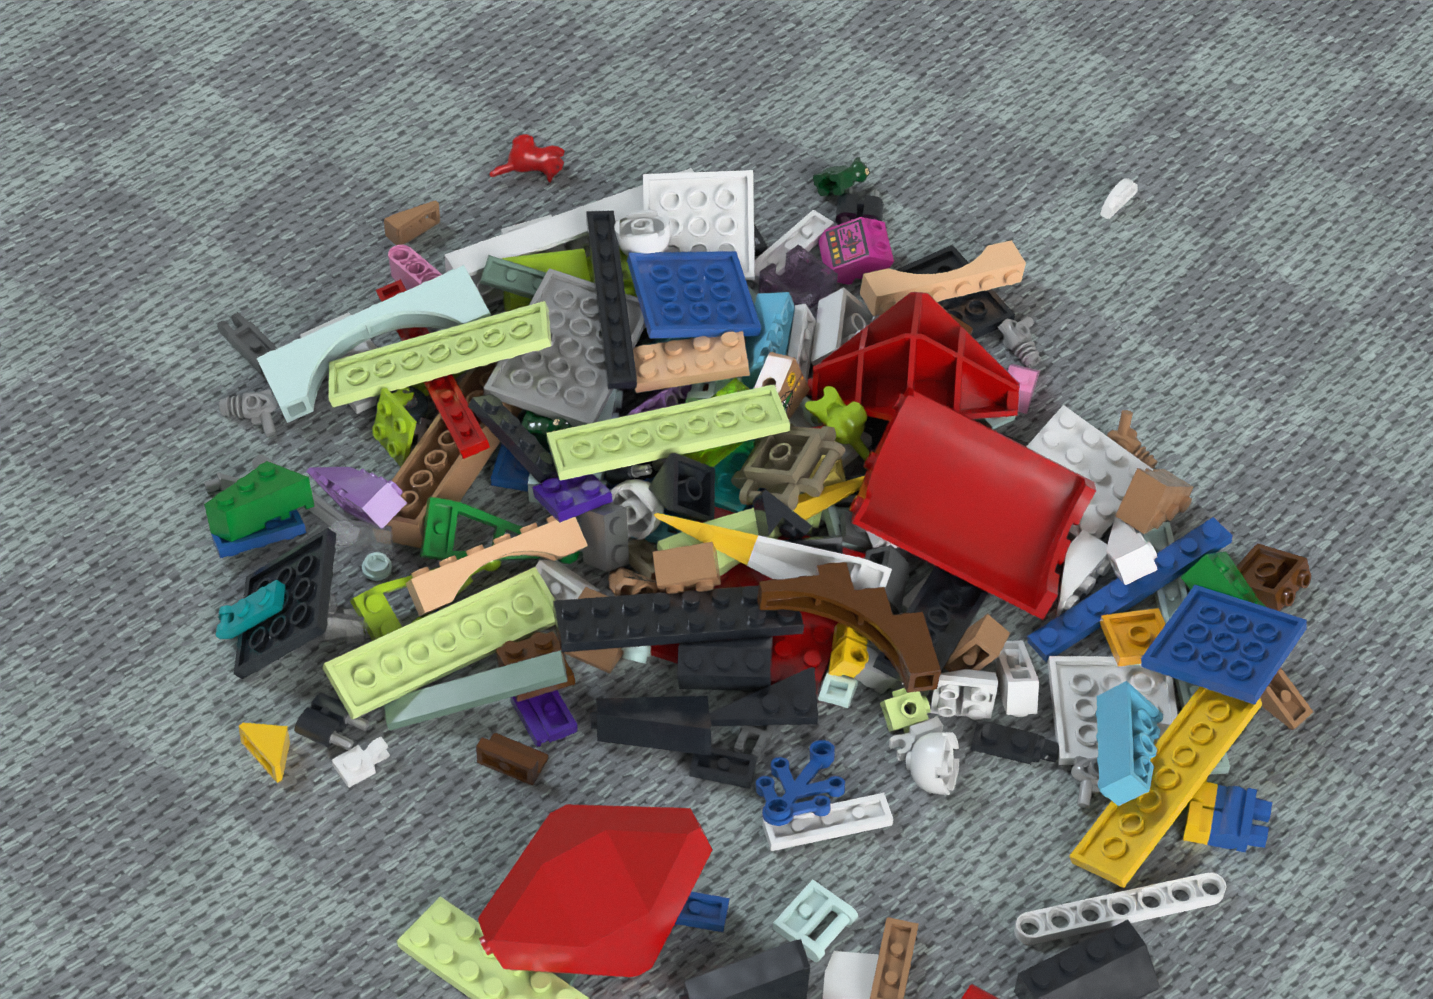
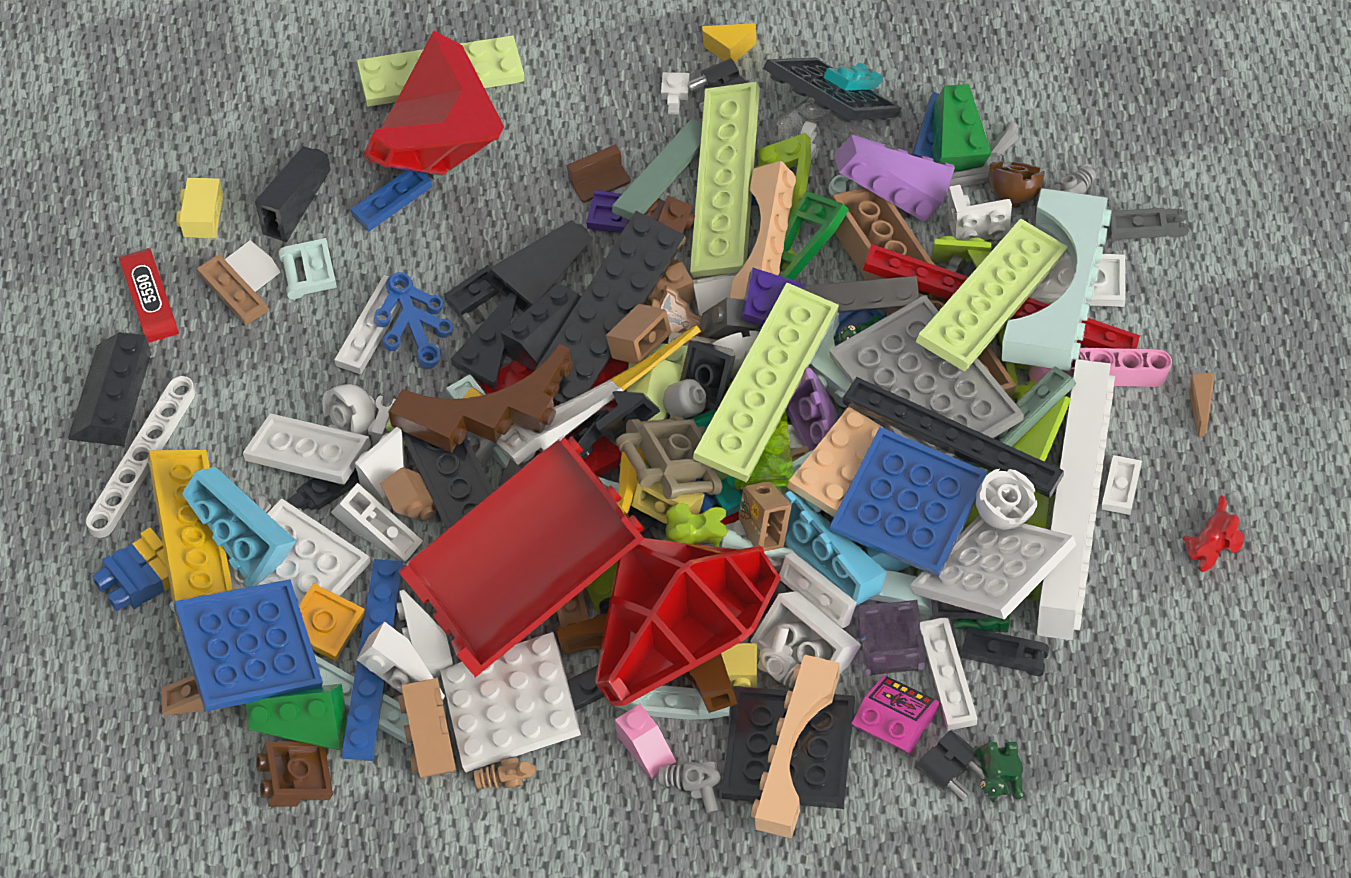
camera: 135 degrees right, 5 degrees up
(279, 435) = (1015, 182): none -> reddish brown cylinder
(350, 435) = (977, 221): none -> white bracket
(724, 495) = (683, 398): none -> light grey head
(1000, 769) = (306, 448): none -> white plate

